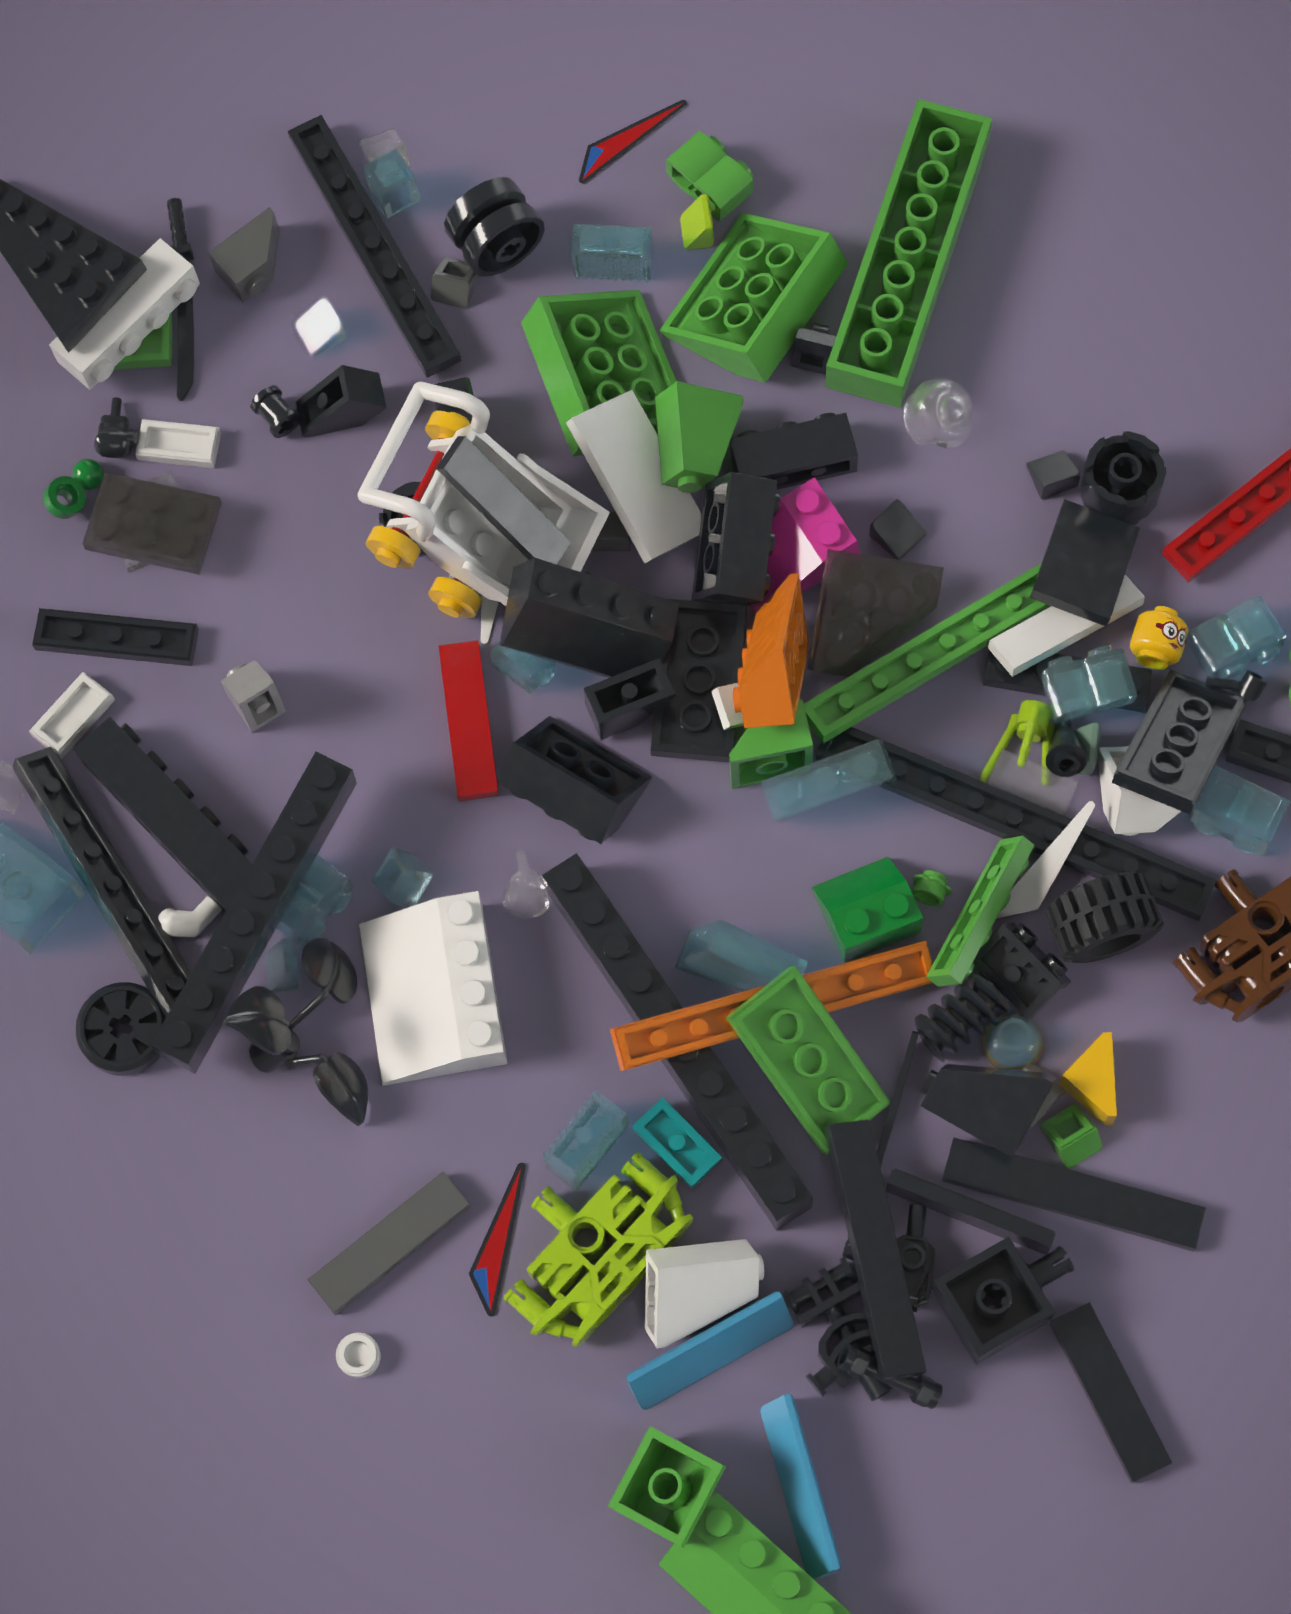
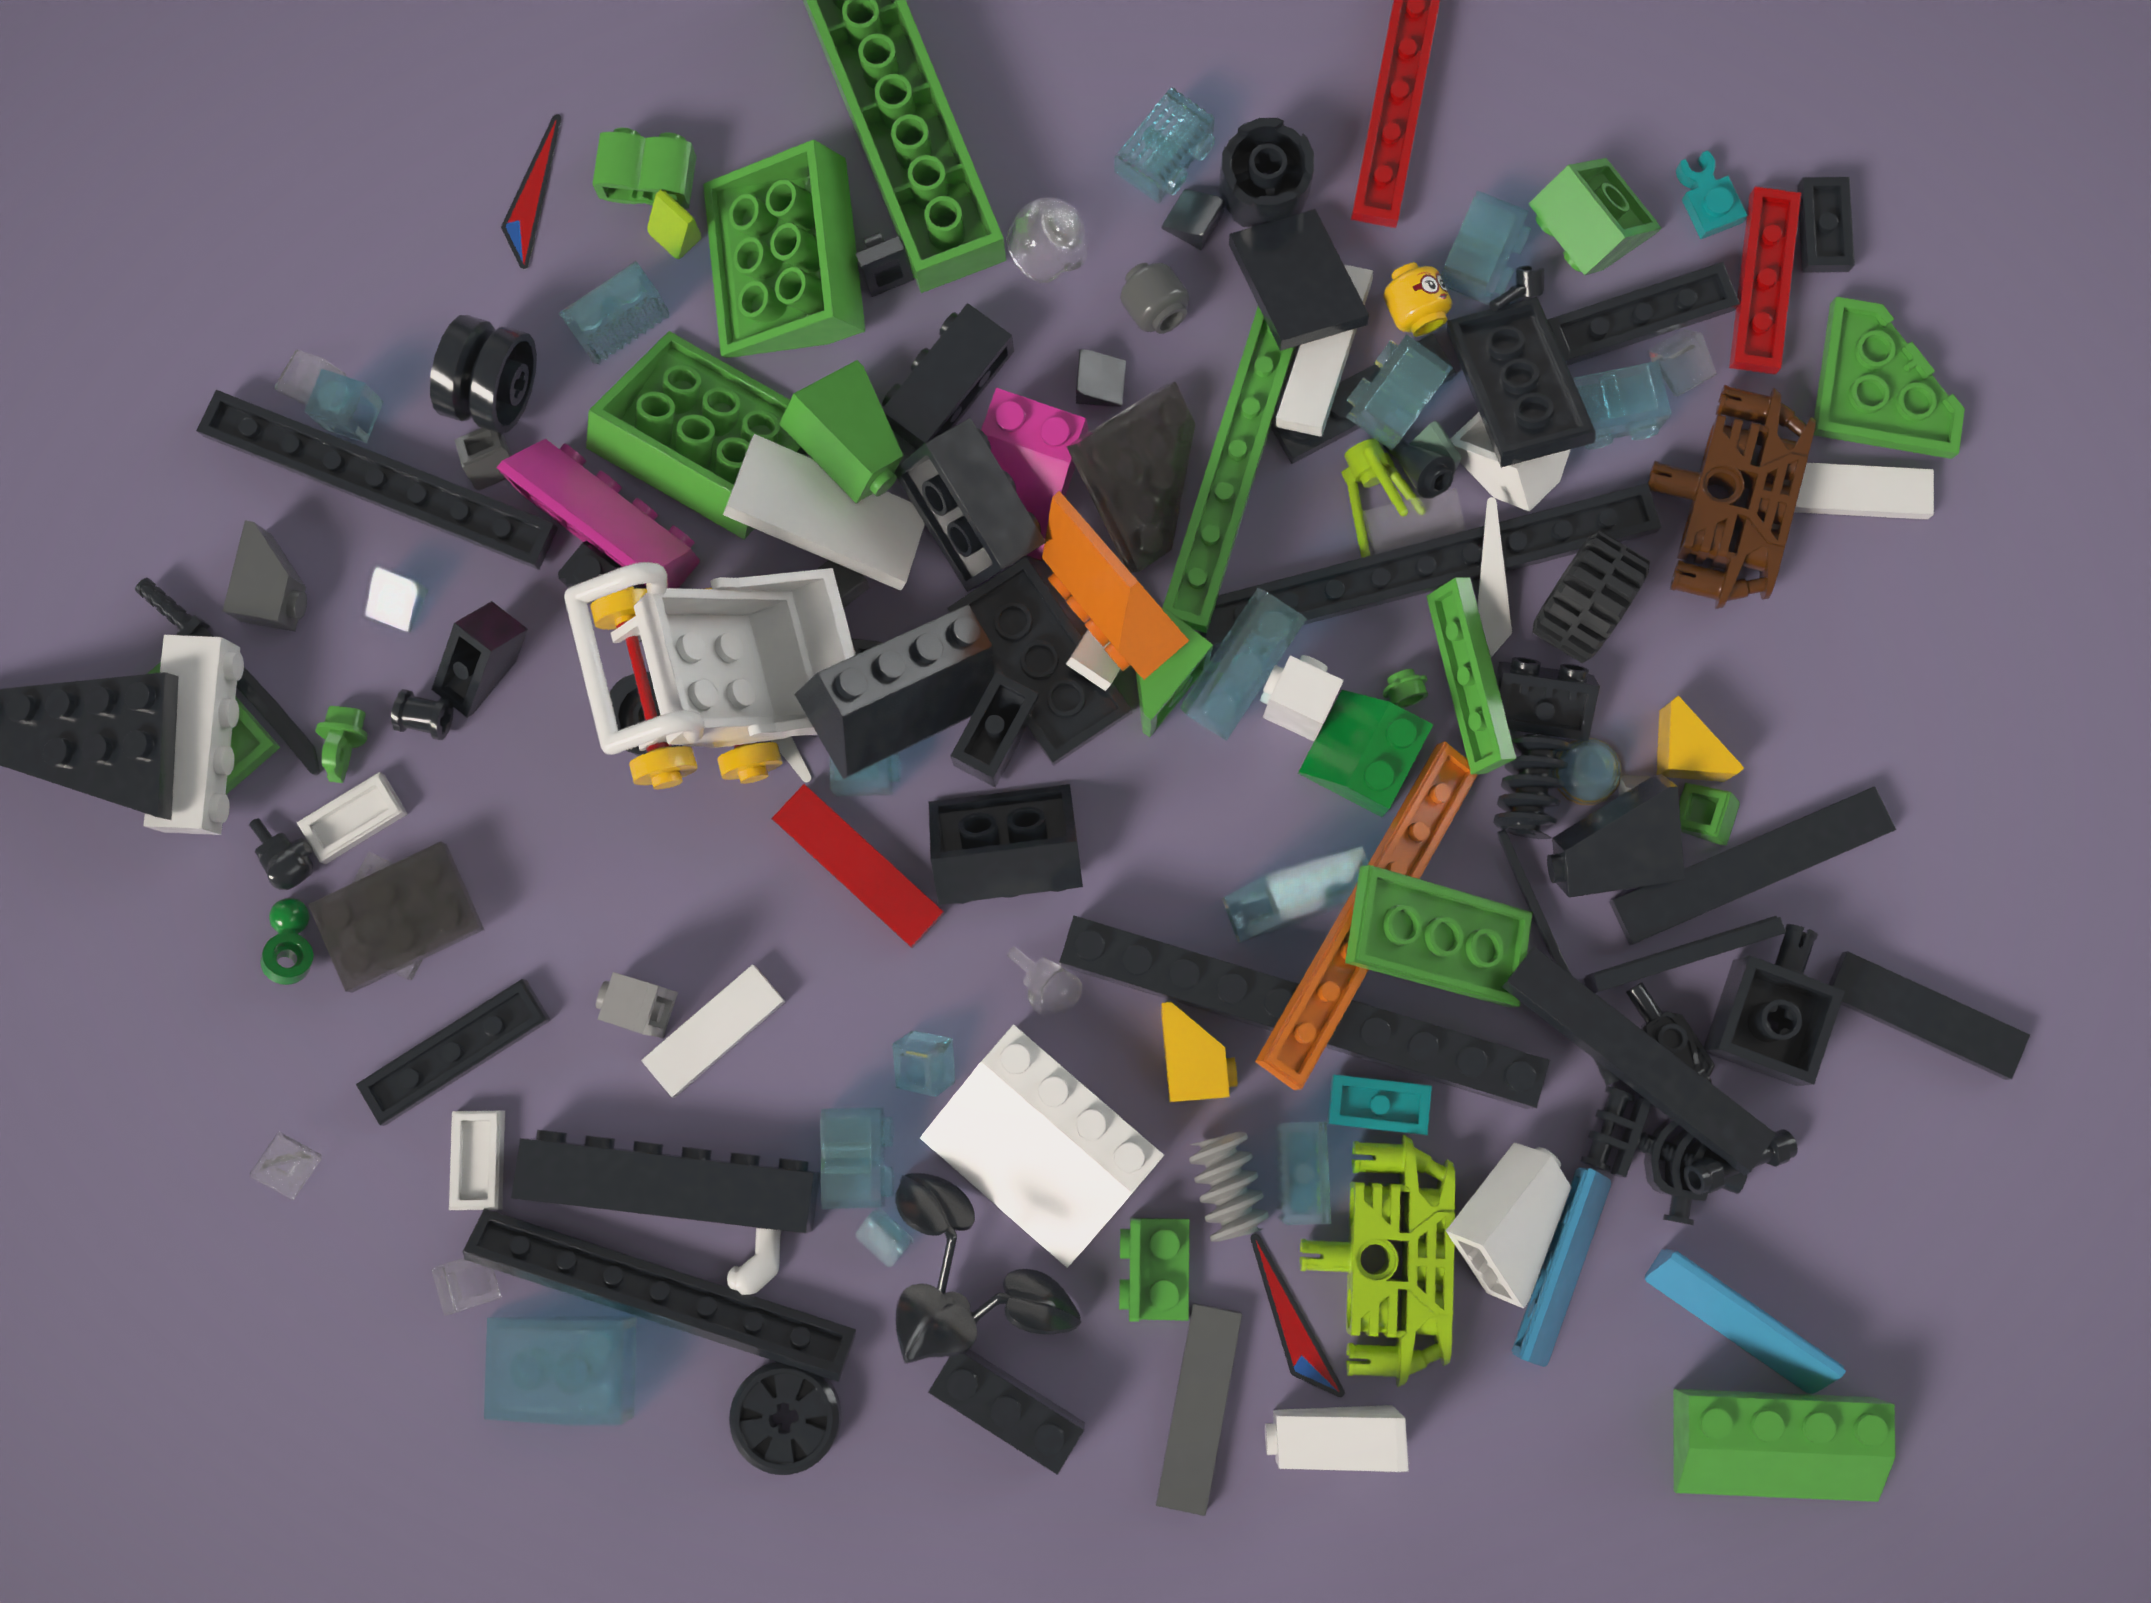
camera: 40 degrees left, 10 degrees up
(215, 386) = (341, 733): none -> bright green piece
(254, 912) = (827, 1219): black brick -> none
(266, 1135) = (1008, 1409): none -> black brick
(282, 750) = (713, 1031): none -> white tile
(358, 1355) = (1258, 1533): white tile -> none
(437, 1129) = (1156, 1269): none -> bright green bracket
(461, 1330) = (1339, 1439): none -> white slope
(492, 368) = (596, 512): none -> dark pink slope
(502, 502) = (738, 643): tile -> none
(528, 1112) = (1228, 1186): none -> light grey piece
(576, 1015) = (1194, 1059): none -> yellow slope
(666, 1486) = (1645, 1427): bright green slope -> none
(850, 831) = (1300, 695): none -> white brick
(978, 503) = (1154, 297): none -> dark grey head
(1071, 411) = (1165, 146): none -> clear light blue brick

